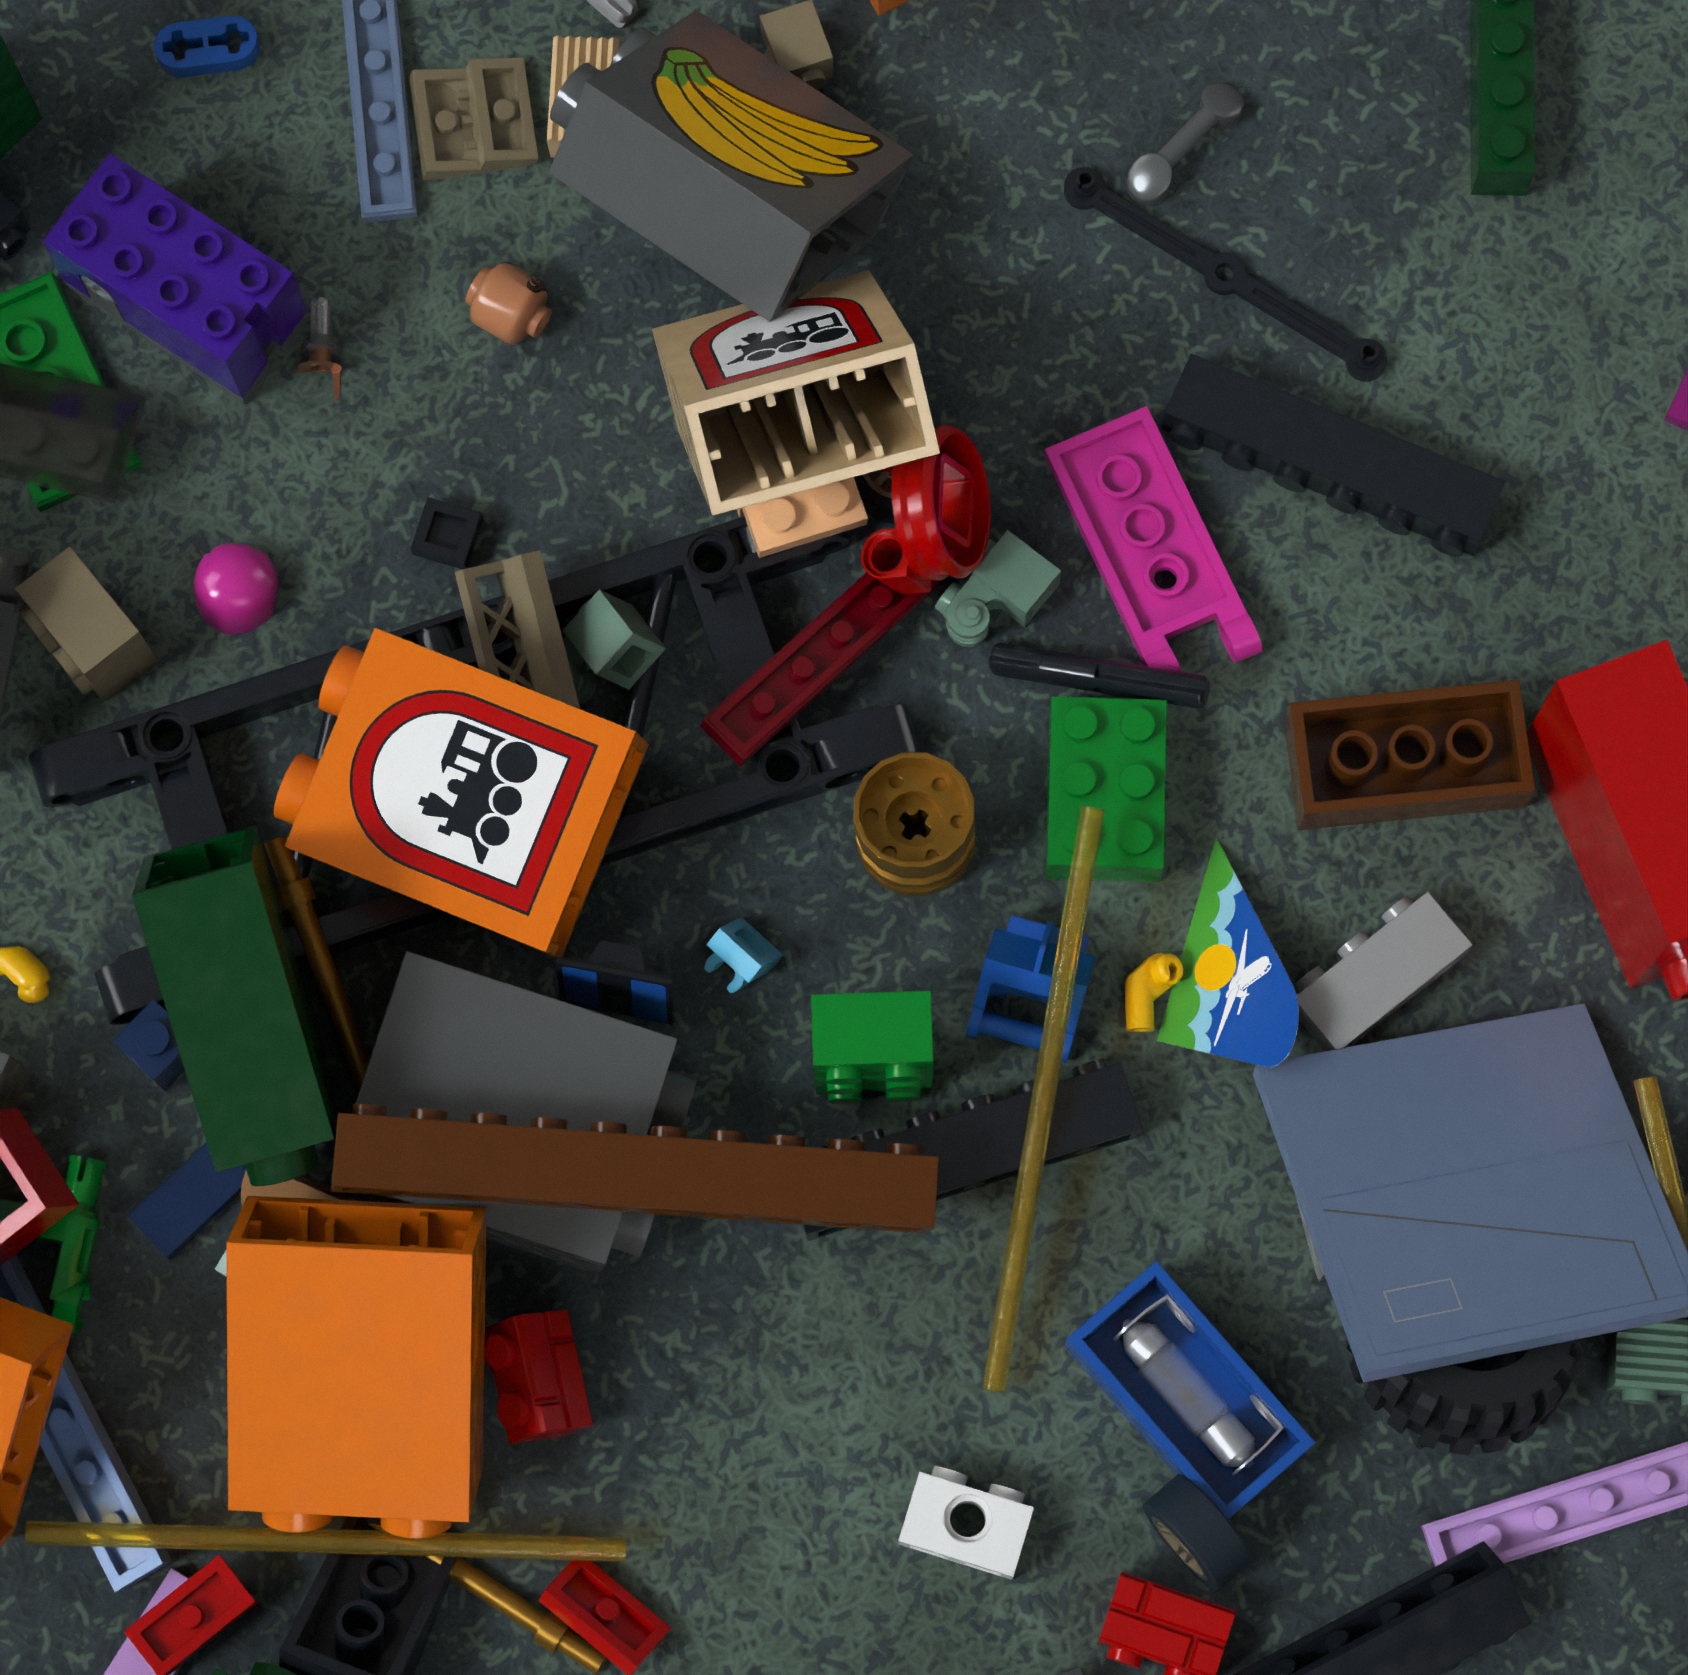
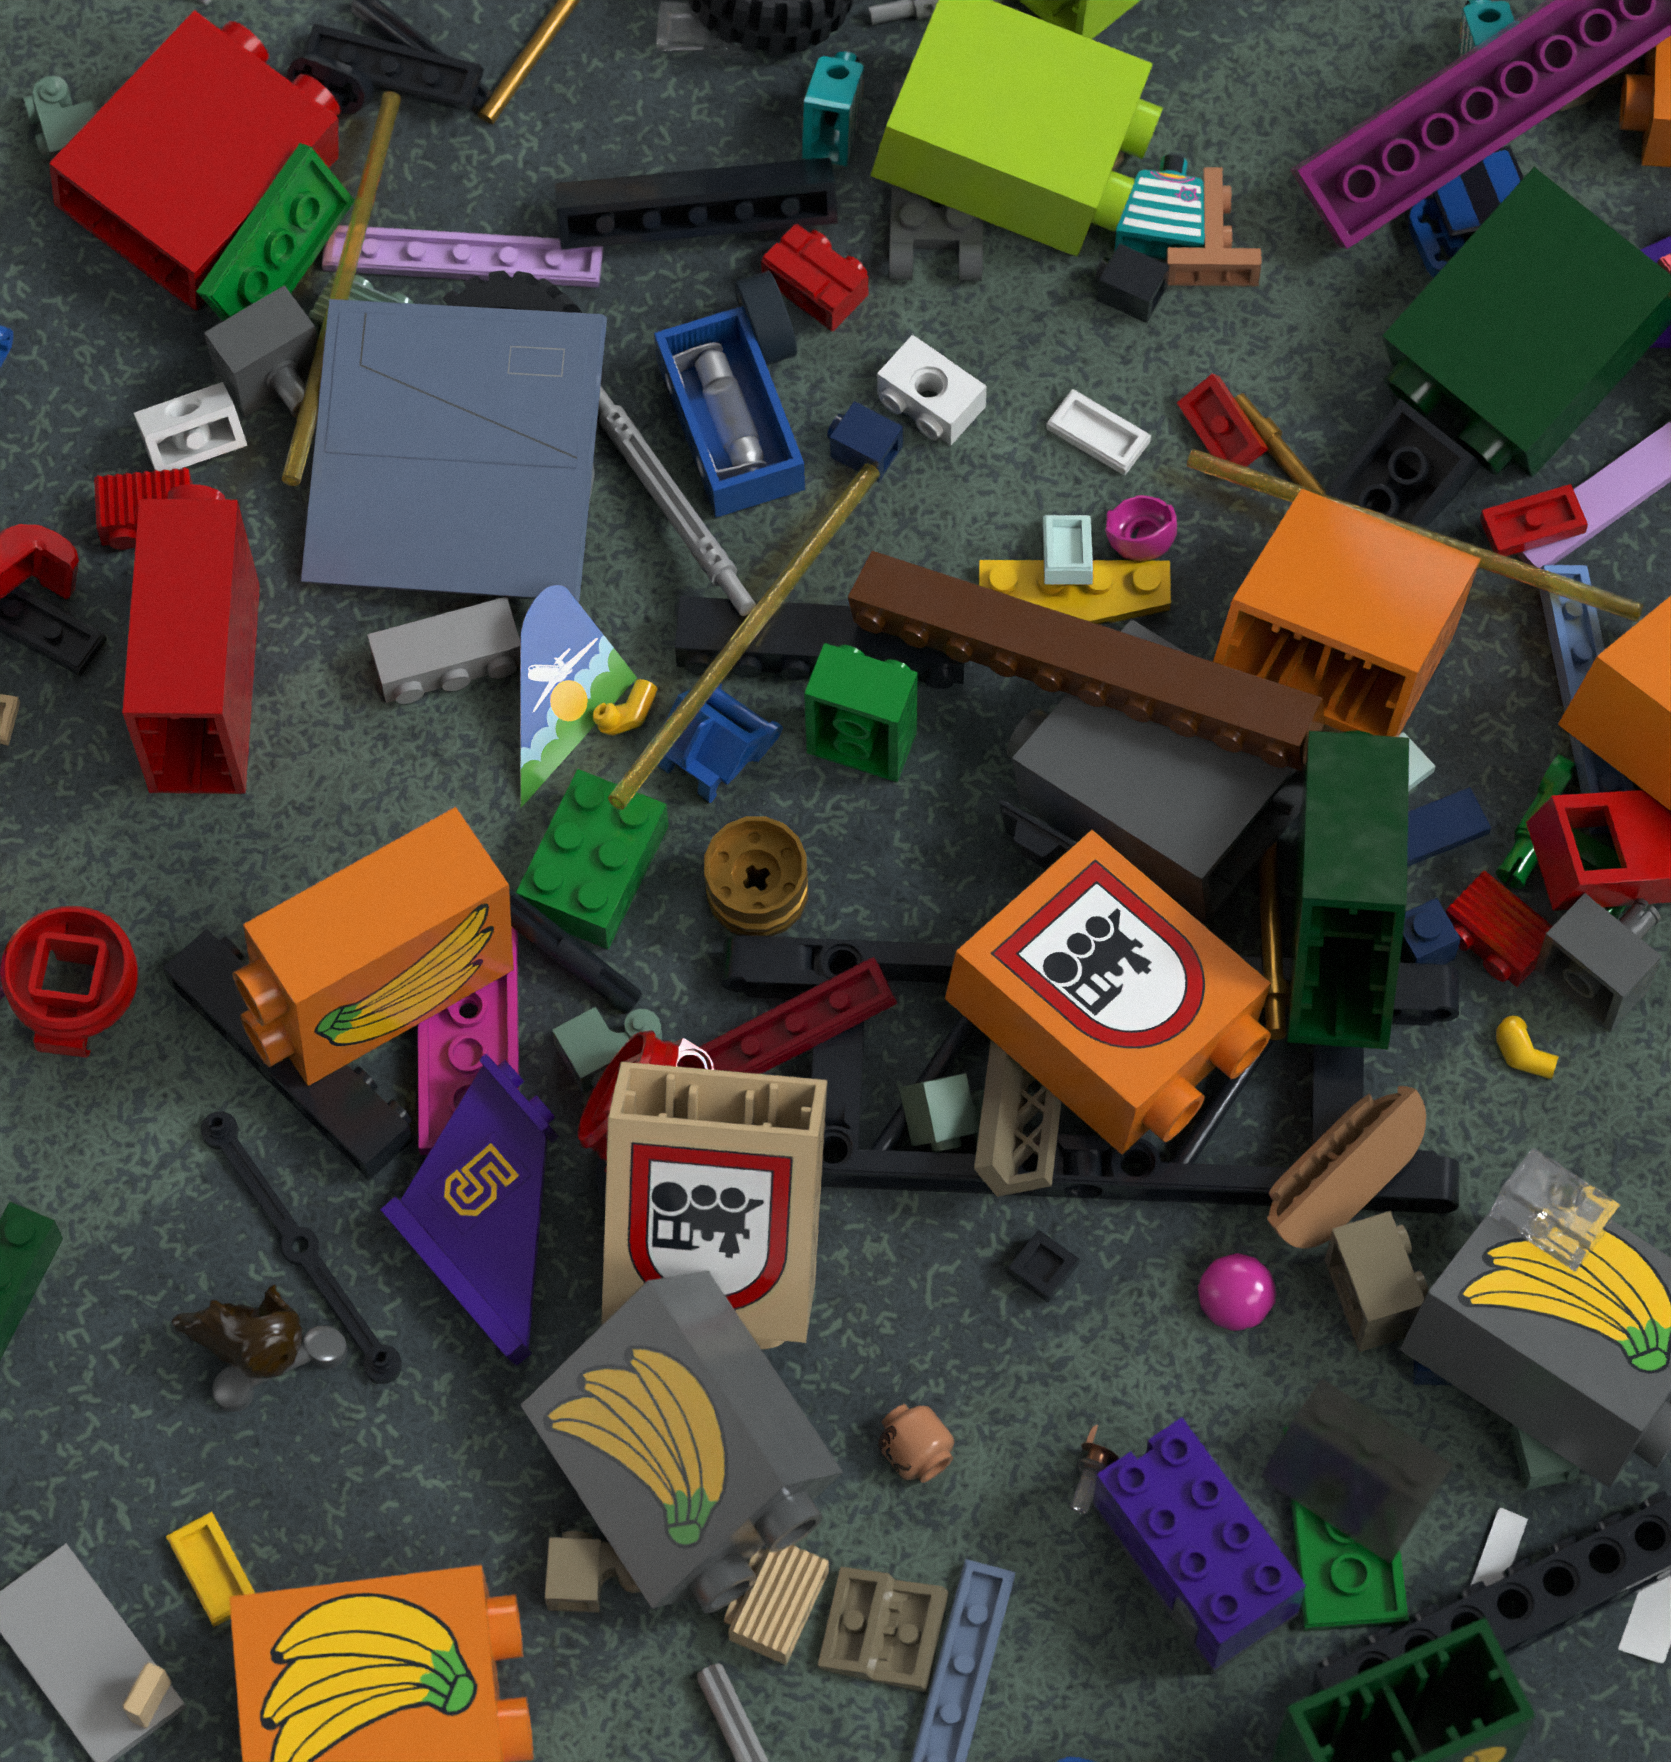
camera: 160 degrees left, 10 degrees down
(80, 1092) = (1498, 929): none -> red brick
(155, 719) = (1347, 1167): none -> medium nougat brick
(537, 1376) = (1205, 590): red brick -> none
(634, 1437) = (1156, 529): none -> dark pink hair
(718, 1321) = (1118, 590): none -> yellow wing
(725, 1372) = (1067, 549): none -> light aqua tile
(743, 951) = (931, 845): medium azure tile -> none
(750, 1557) = (1098, 432): none -> white tile
(1018, 1426) = (864, 439): none -> dark blue brick
(1055, 363) = (480, 1204): none -> dark purple piece
(1208, 1254) = (673, 503): none -> light grey axle
(1234, 139) = (251, 1339): none -> dark brown piece
(1269, 513) = (375, 949): none -> orange brick
(1408, 755) = (338, 788): reddish brown brick -> none
(1585, 385) = (76, 936): none -> red piece

